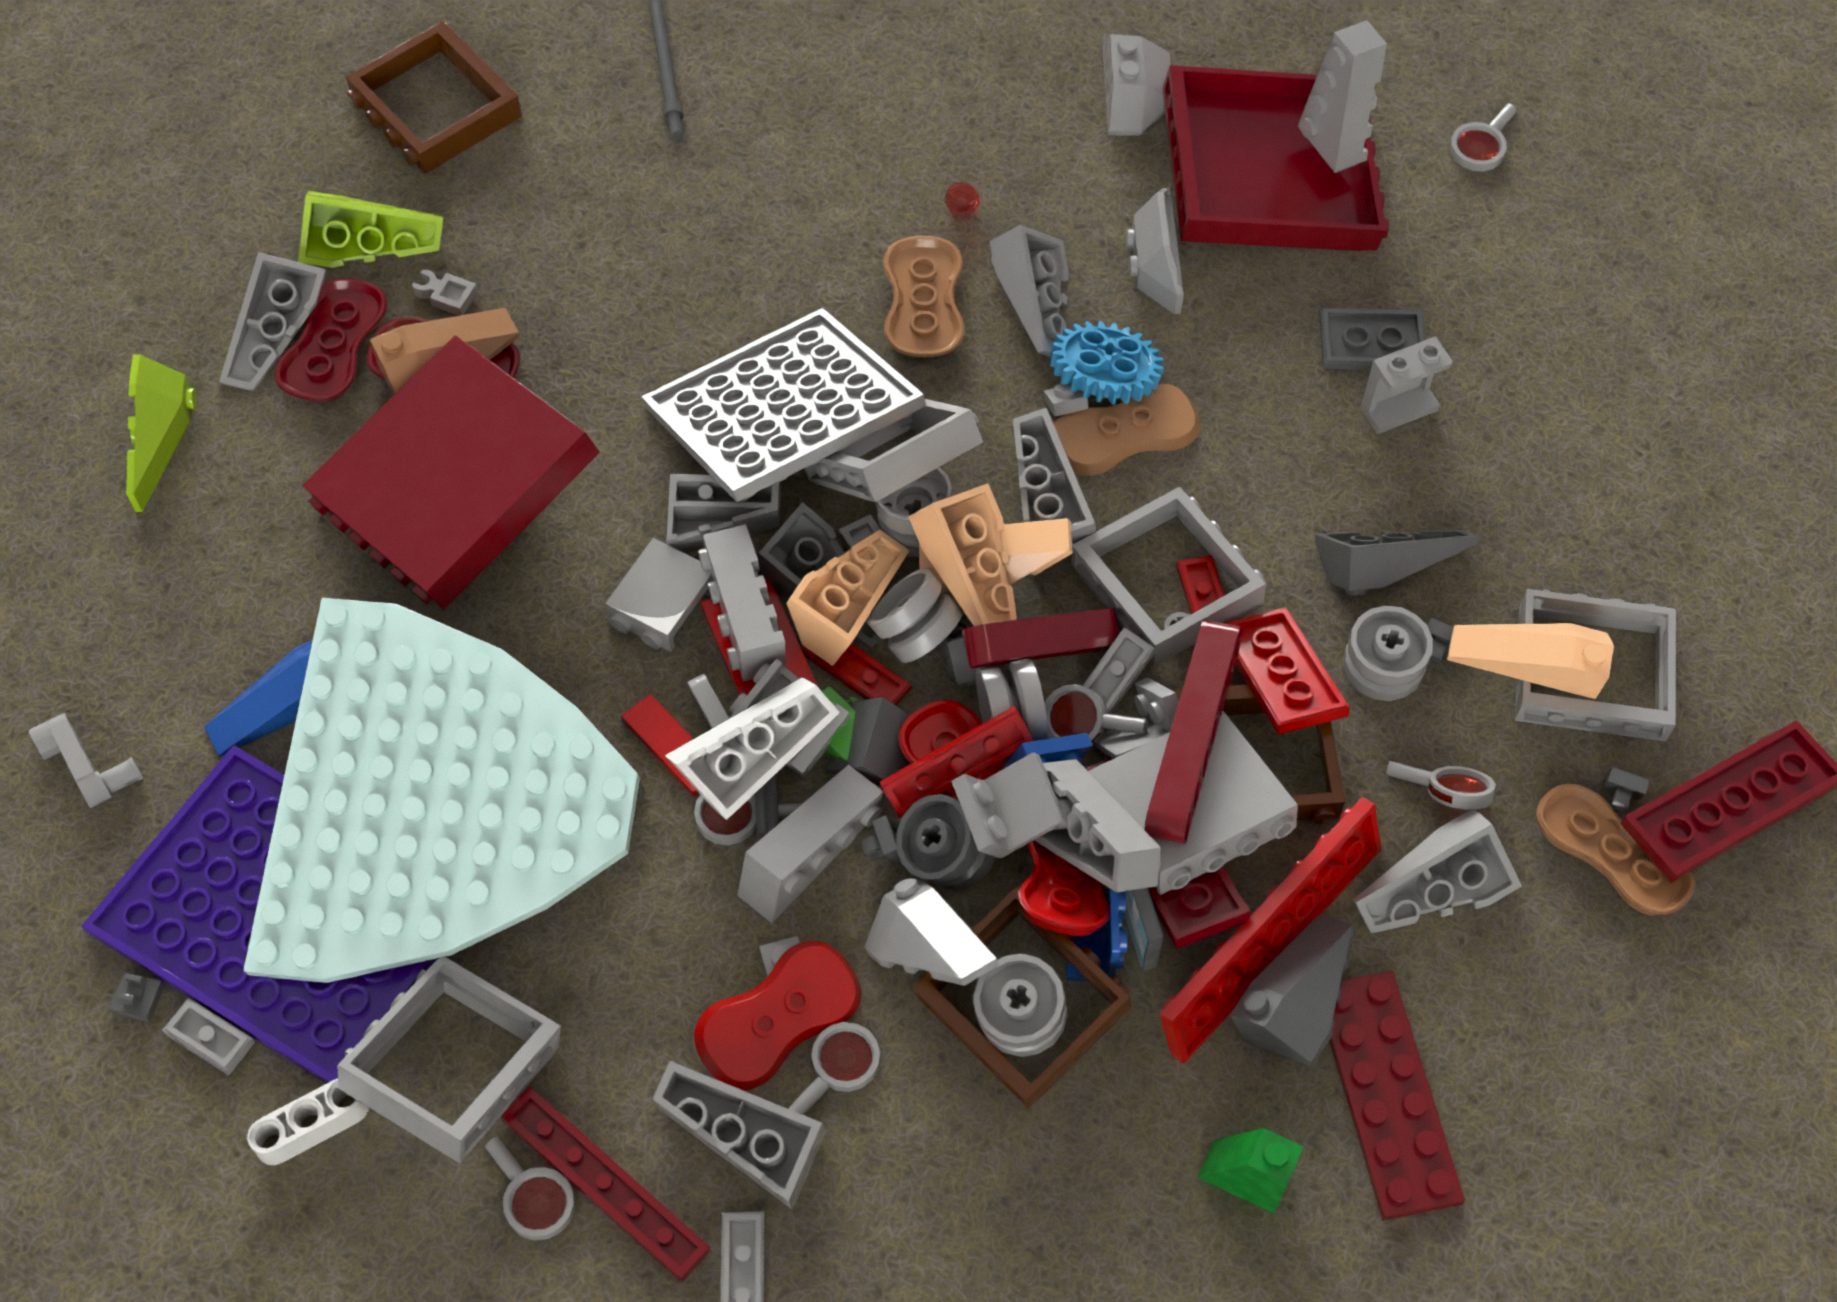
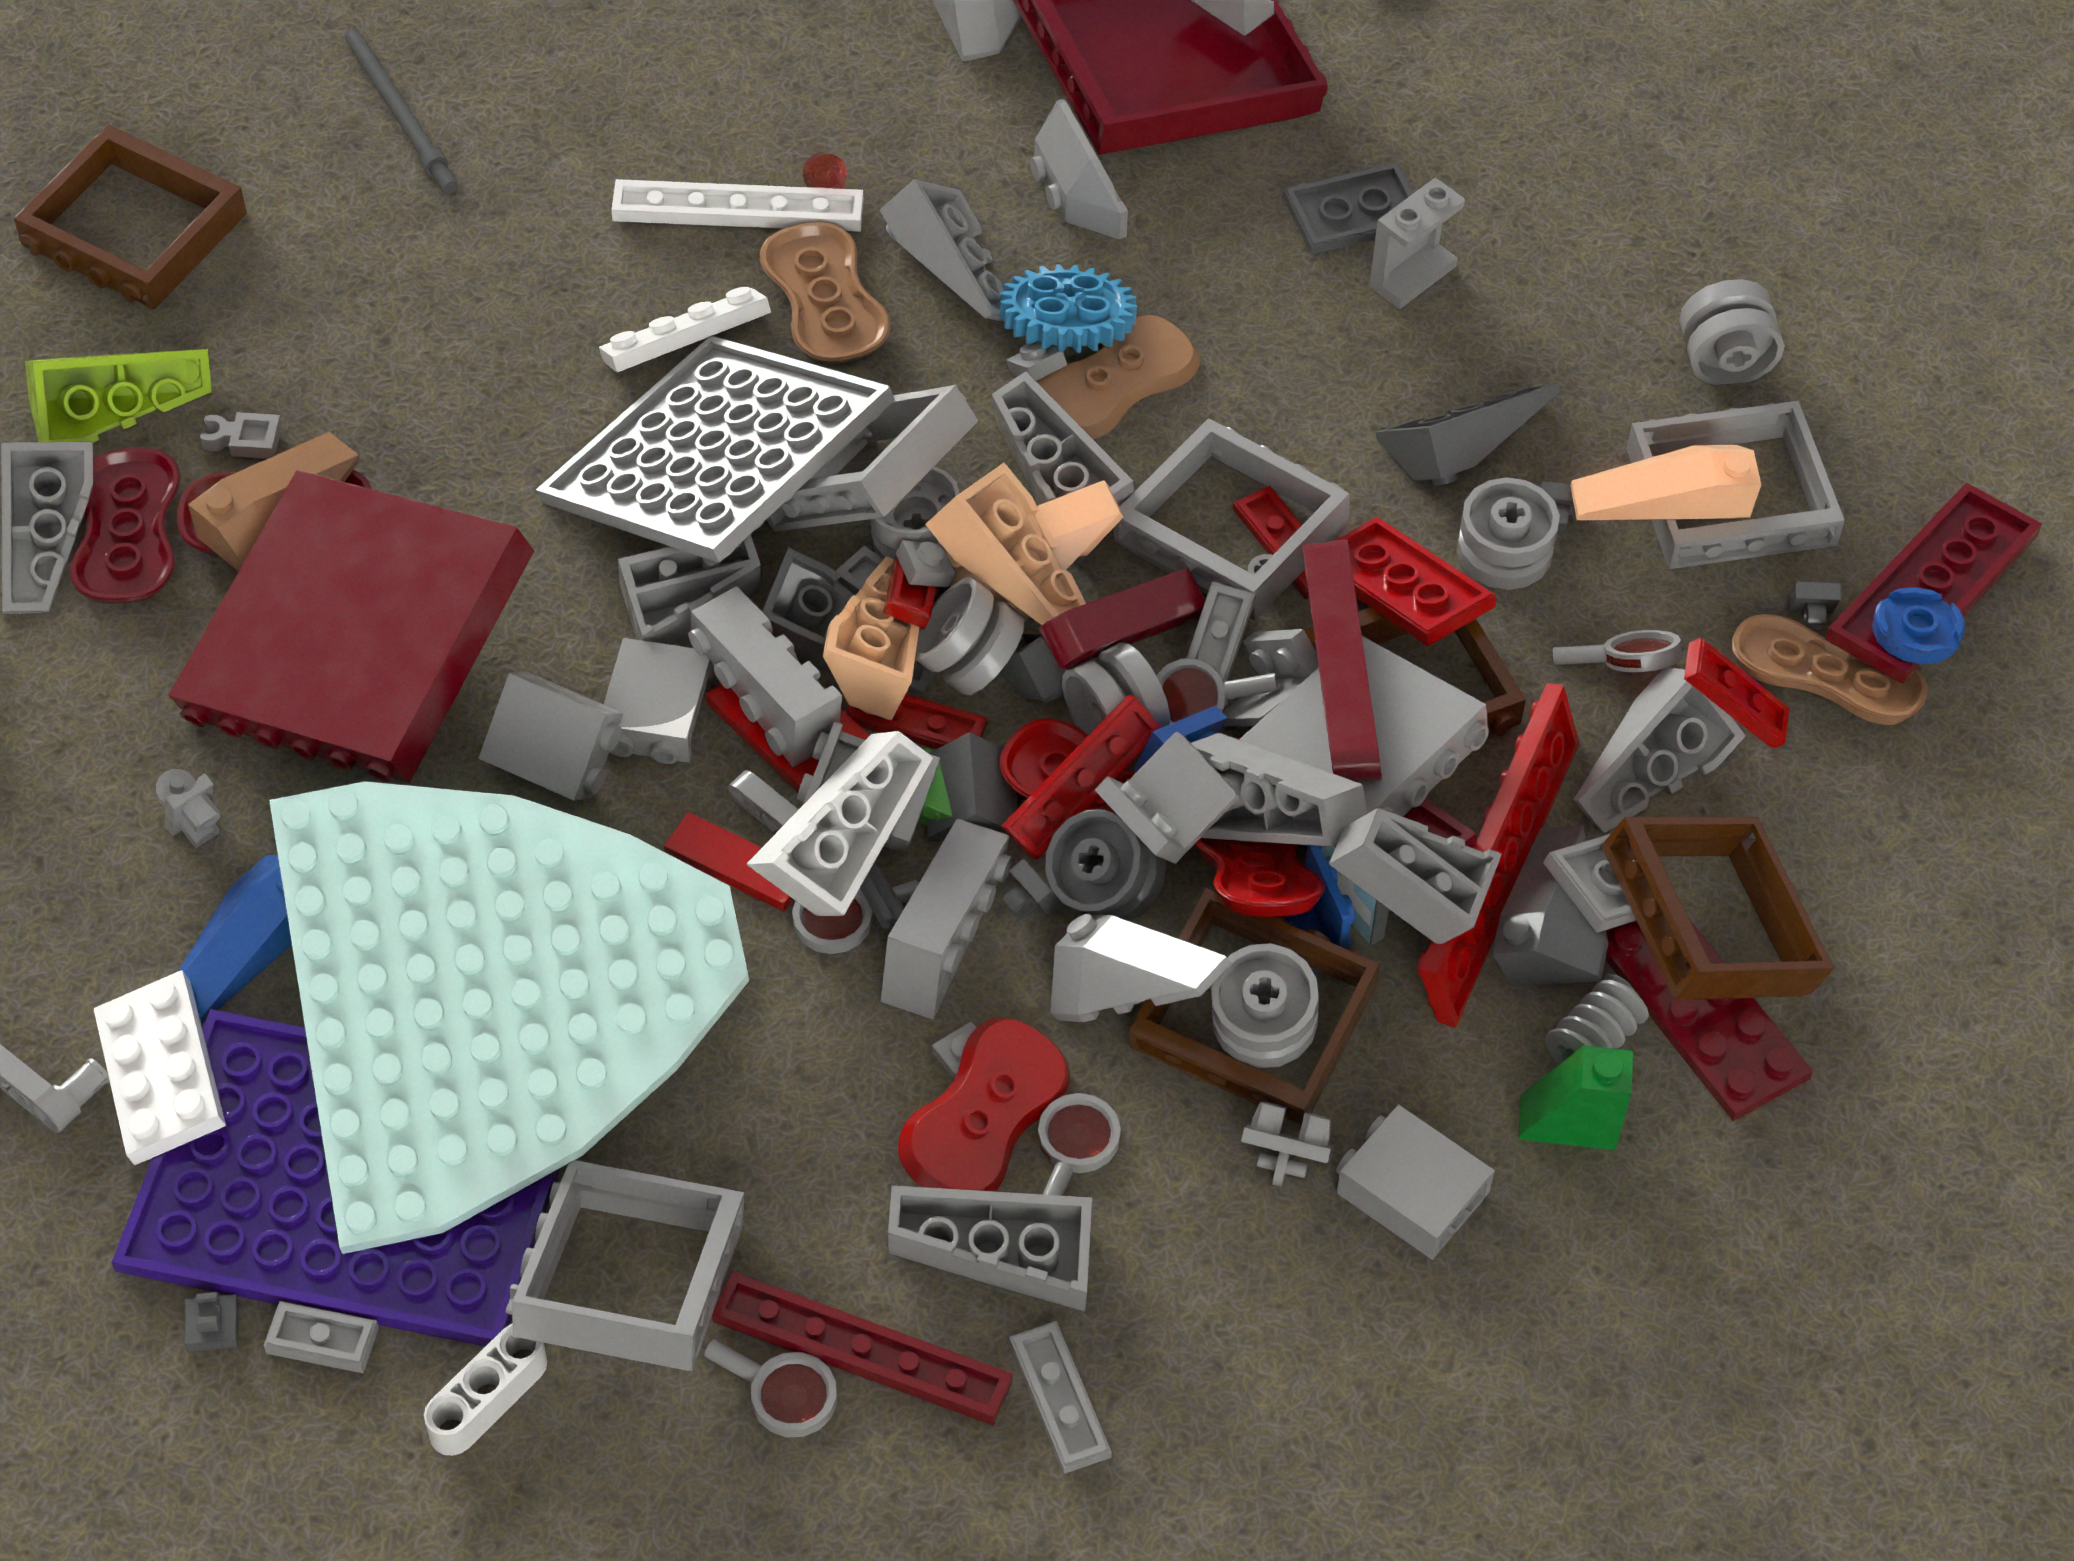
camera: 20 degrees left, 5 degrees down
(177, 781) = (159, 1067): none -> white plate
(281, 577) = (188, 805): none -> light grey hips
(566, 602) = (551, 736): none -> light grey brick
(794, 298) = (674, 333): none -> white plate
(885, 207) = (735, 204): none -> white plate
(887, 563) = (908, 601): none -> red tile
(902, 546) = (925, 563): none -> light grey plate
(1000, 1127) = (1266, 1133): none -> light grey hips
(1094, 1188) = (1413, 1180): none -> light grey brick
(1180, 936) = (1415, 873): none -> light grey wedge
(1297, 1101) = (1599, 1019): none -> light grey piece
(1351, 982) = (1591, 883): none -> light grey tile
(1380, 1036) = (1634, 858): none -> reddish brown window
(1523, 850) = (1736, 693): none -> red tile
(1641, 533) = (1731, 332): none -> light grey wheel
(1702, 838) = (1918, 626): none -> blue tile

